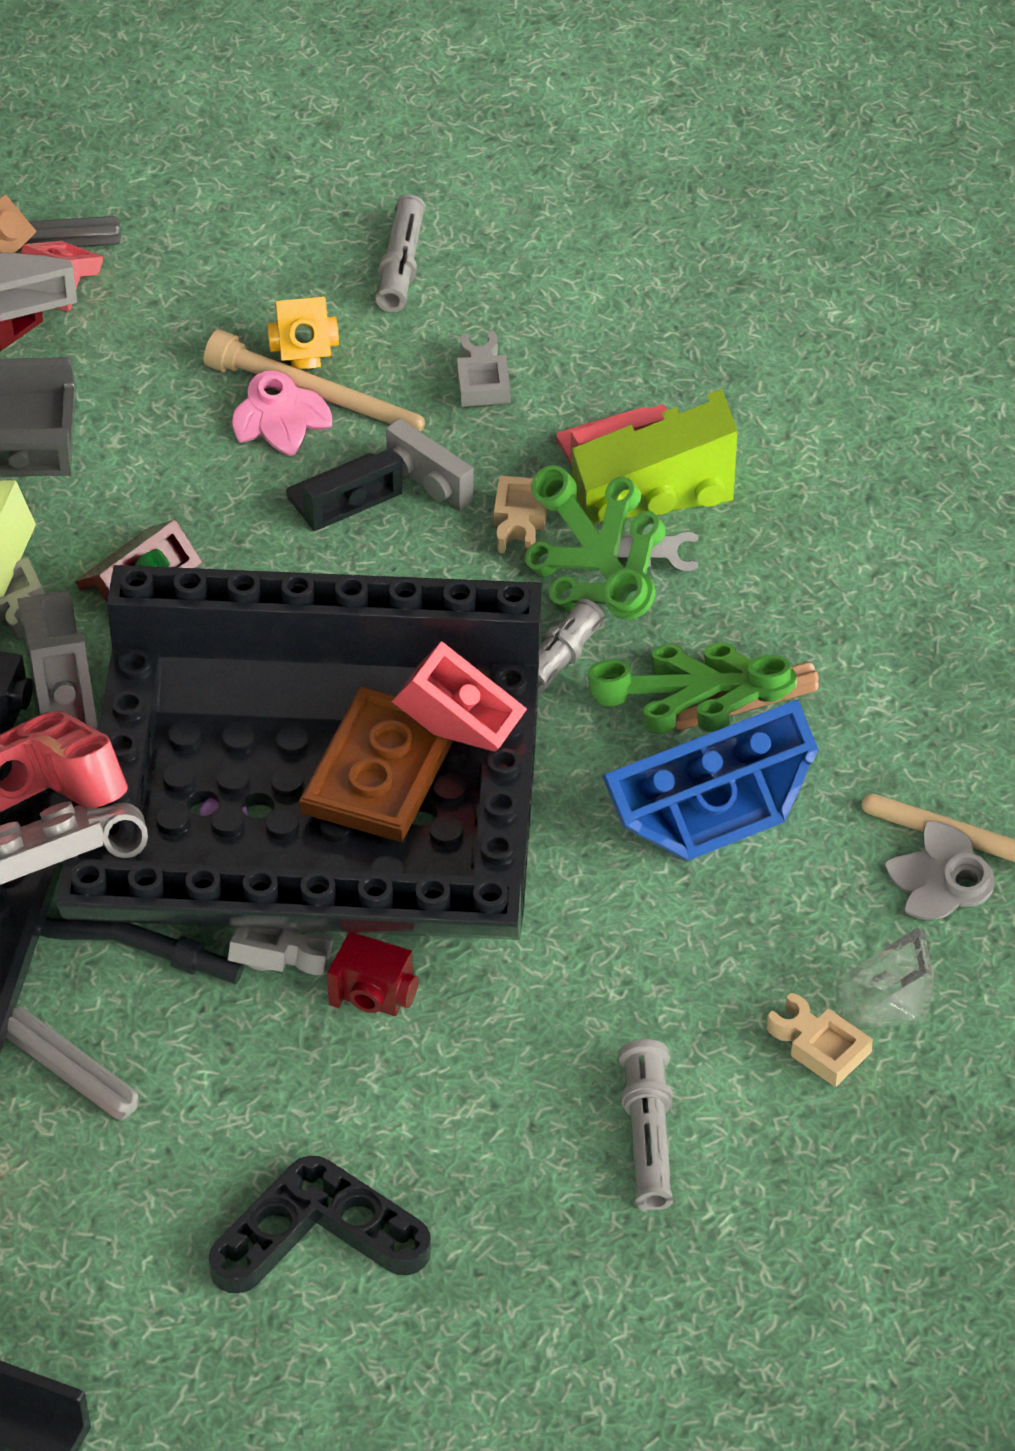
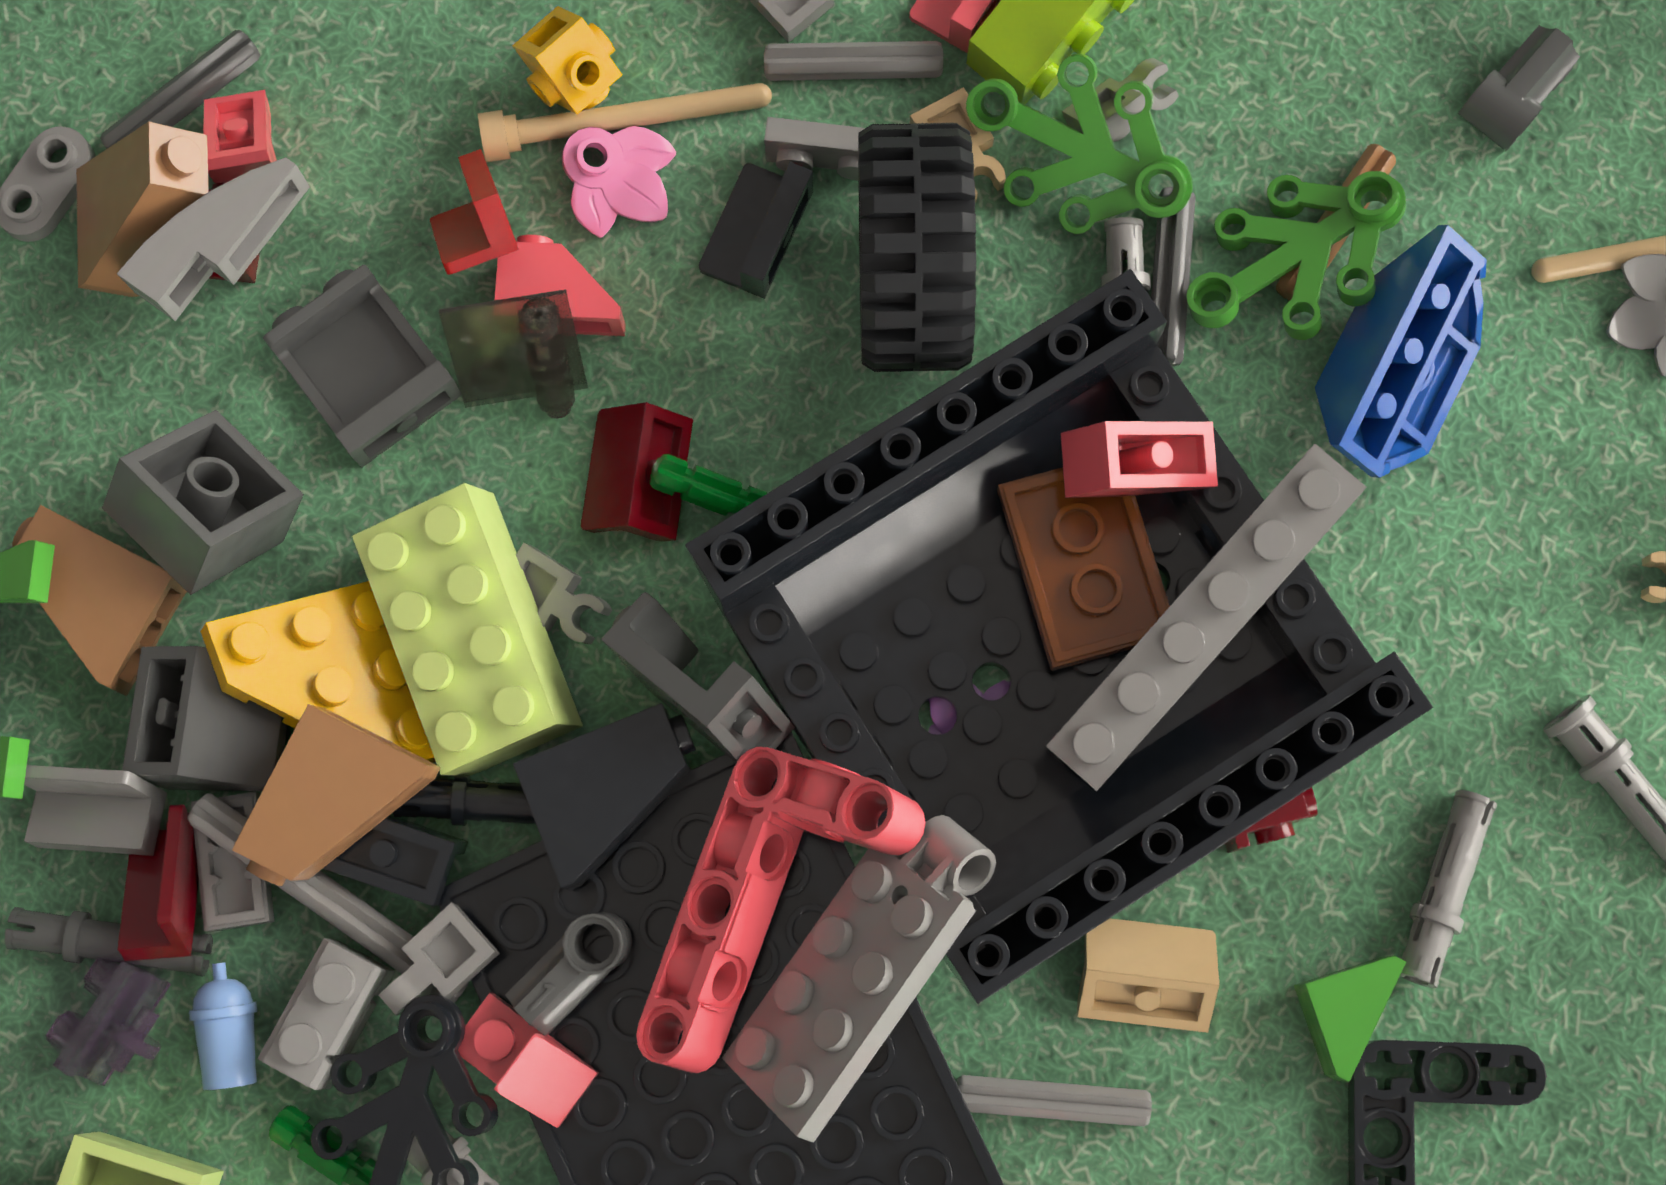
camera: 35 degrees left, 30 degrees up
(121, 452) = (516, 351): none -> clear smoke hinge
(171, 442) = (550, 267): none -> coral slope
(174, 369) = (477, 229): none -> red panel
(199, 1029) = (1149, 975): none -> tan panel
(323, 1123) = (1345, 1010): none -> bright green slope
(417, 499) = (916, 247): none -> black tyre
(422, 805) = (1206, 616): none -> light grey brick
(441, 1114) = (1450, 876): none -> light grey pin
(492, 434) = (853, 60): none -> light grey axle
(614, 645) = (1172, 276): none -> dark grey axle
(932, 690) = (1513, 96): none -> dark grey piece

